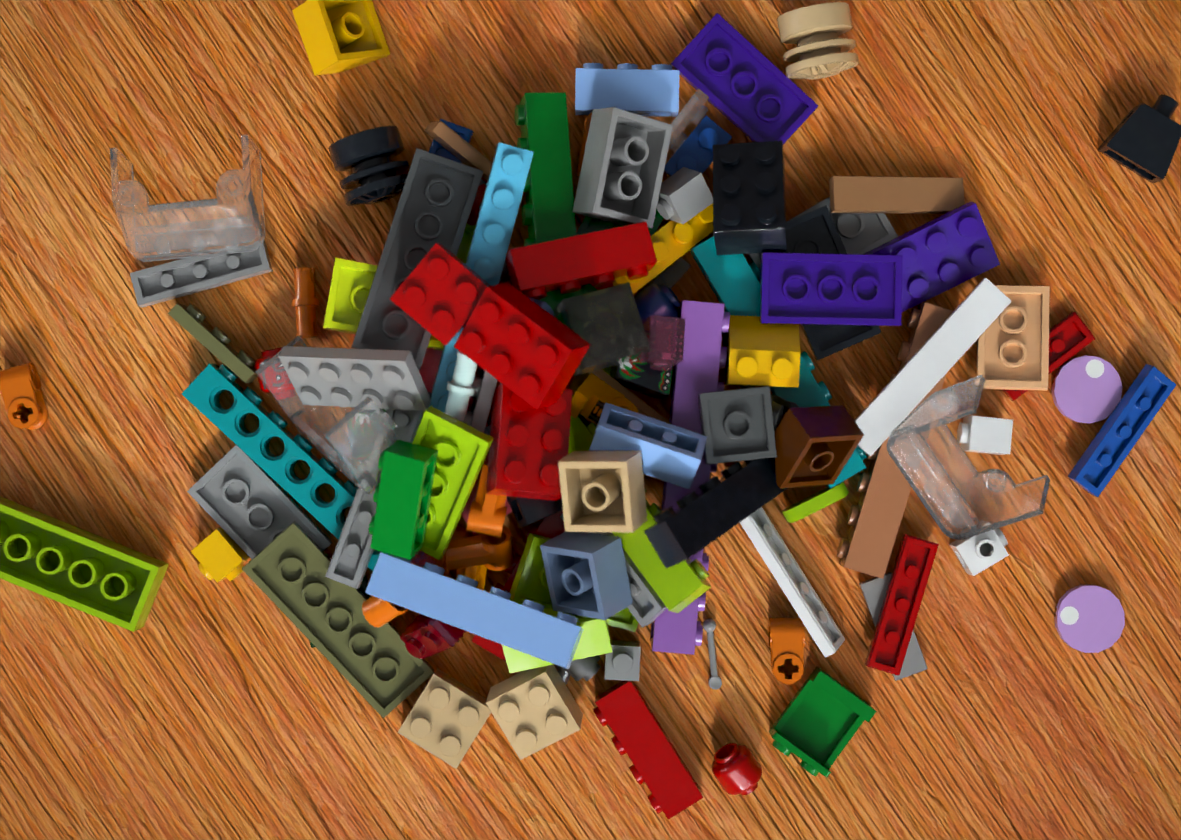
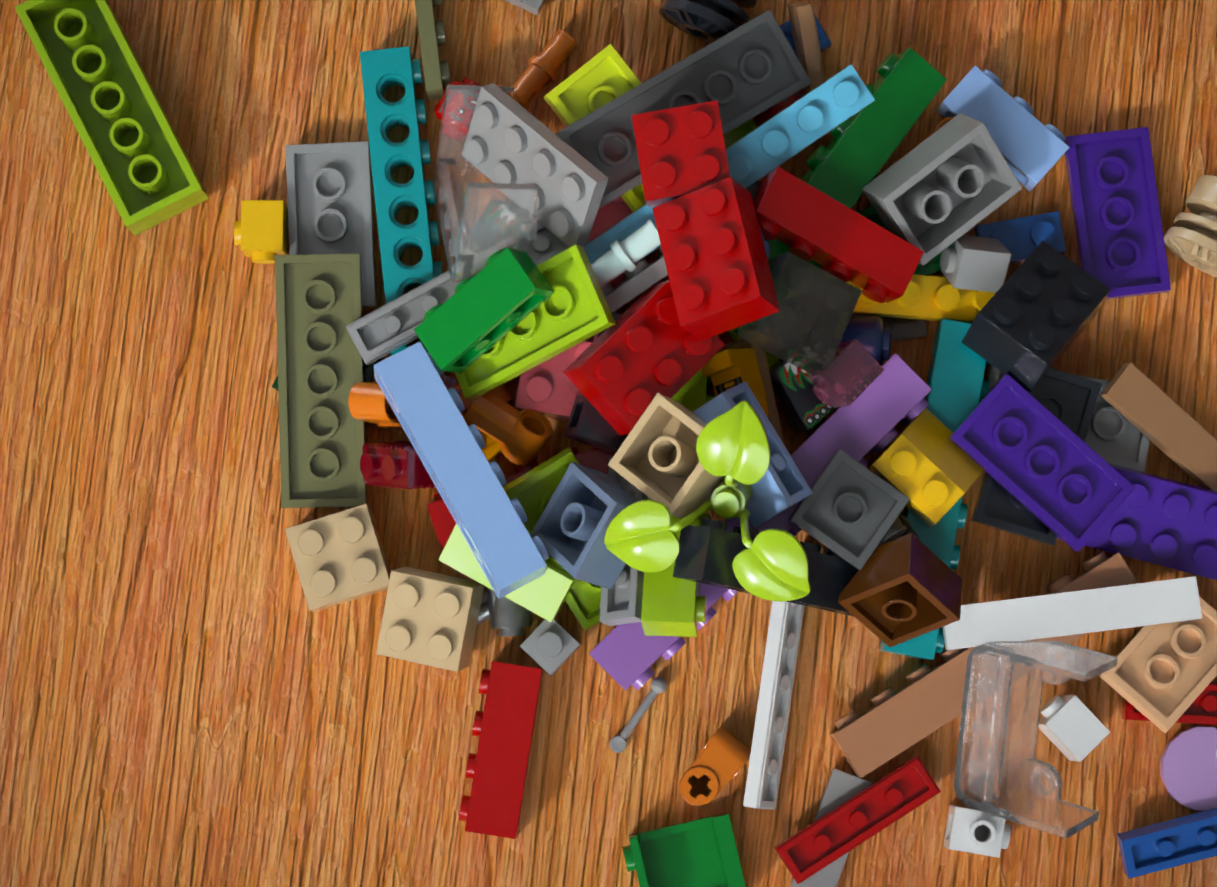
camera: 45 degrees right, 5 degrees down
(487, 510) = (549, 392): orange piece -> none
(642, 460) = (739, 449): none -> lime plant
(692, 112) = (1048, 196): clear plate -> none
(736, 769) = (568, 842): red head -> none
(815, 502) = (857, 654): lime tile -> none

